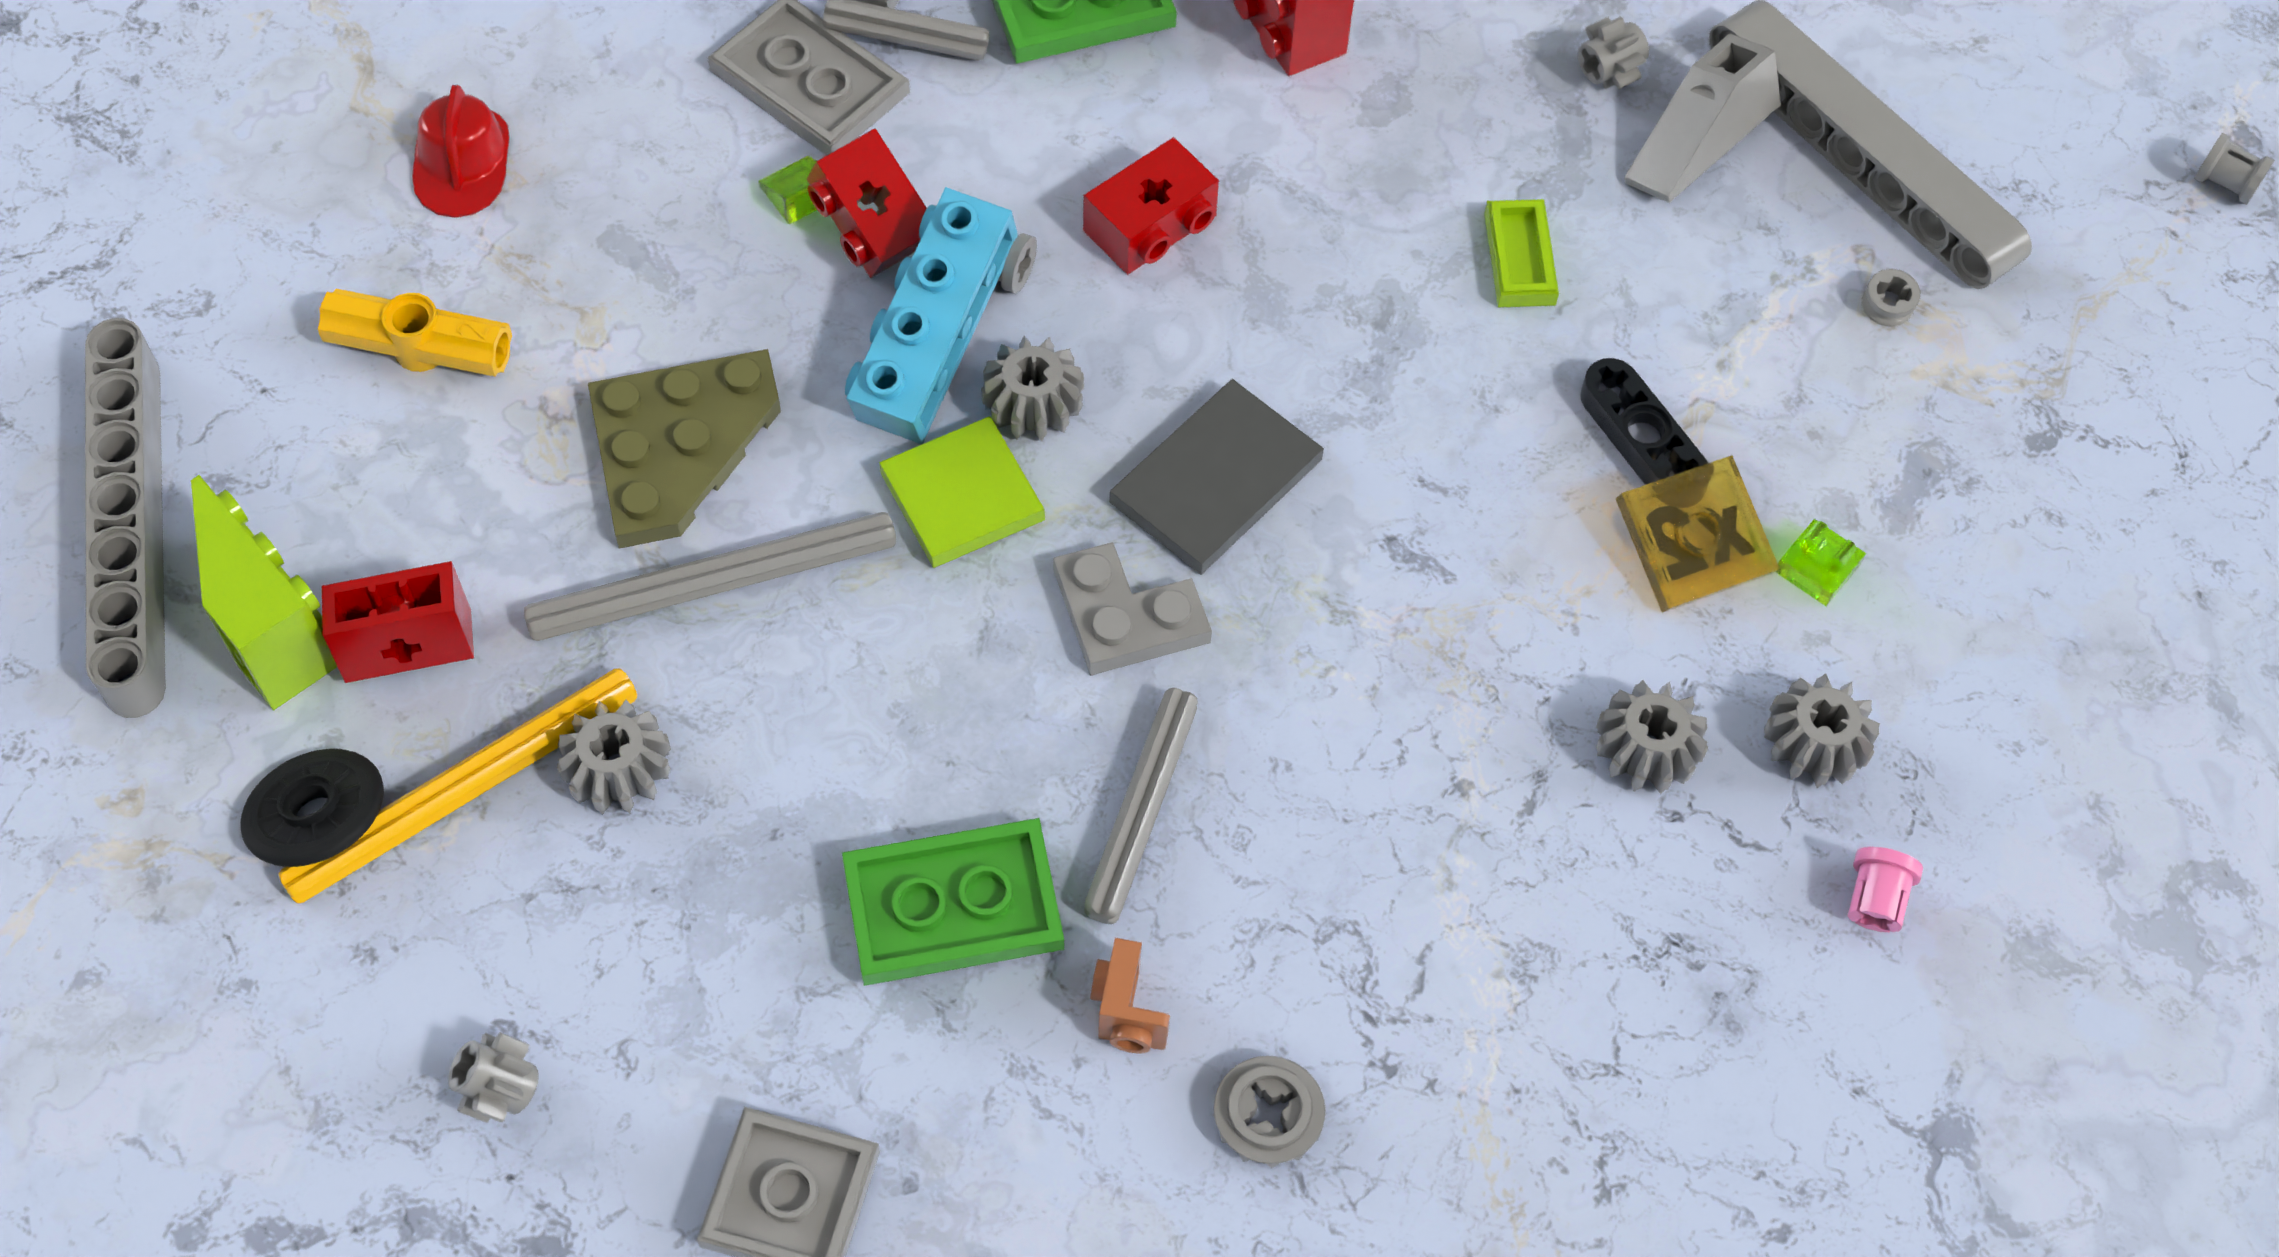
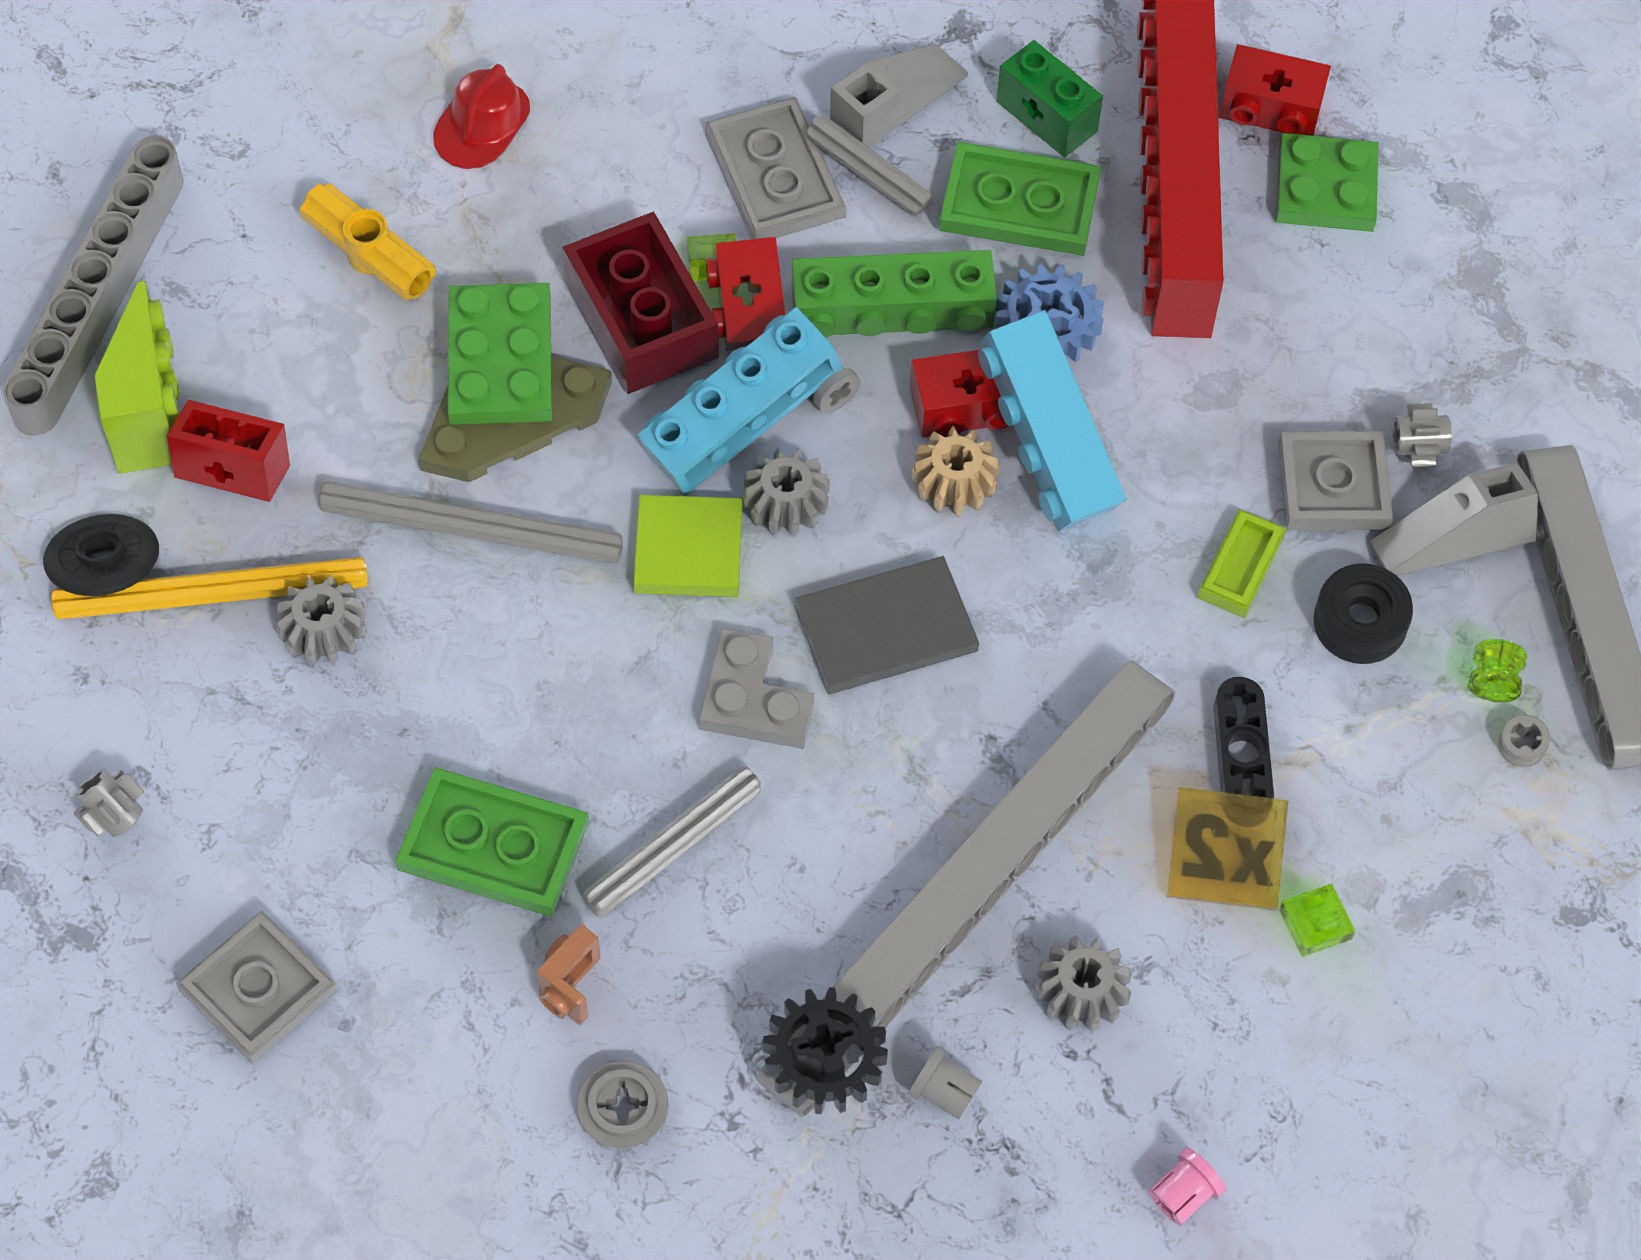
camera: 30 degrees right, 0 degrees up
(641, 382) = (499, 353): none -> bright green plate
(761, 262) = (641, 302): none -> dark red brick
(1021, 136) = (896, 292): none -> bright green brick
(1183, 95) = (1056, 296): none -> medium blue gear
(1191, 288) = (955, 471): none -> tan gear
(1265, 191) = (1050, 420): none -> medium azure brick
(1472, 713) = (998, 852): none -> light grey beam
(1473, 964) = (845, 1041): none -> black gear
(1559, 132) = (1335, 480): none -> light grey plate
(1582, 910) = (945, 1084): none -> light grey bush
(1675, 217) = (1369, 586): none -> black tyre
(1821, 730) = (1202, 1053): light grey gear -> none
(1828, 241) = (1497, 670): none -> clear neon green wheel

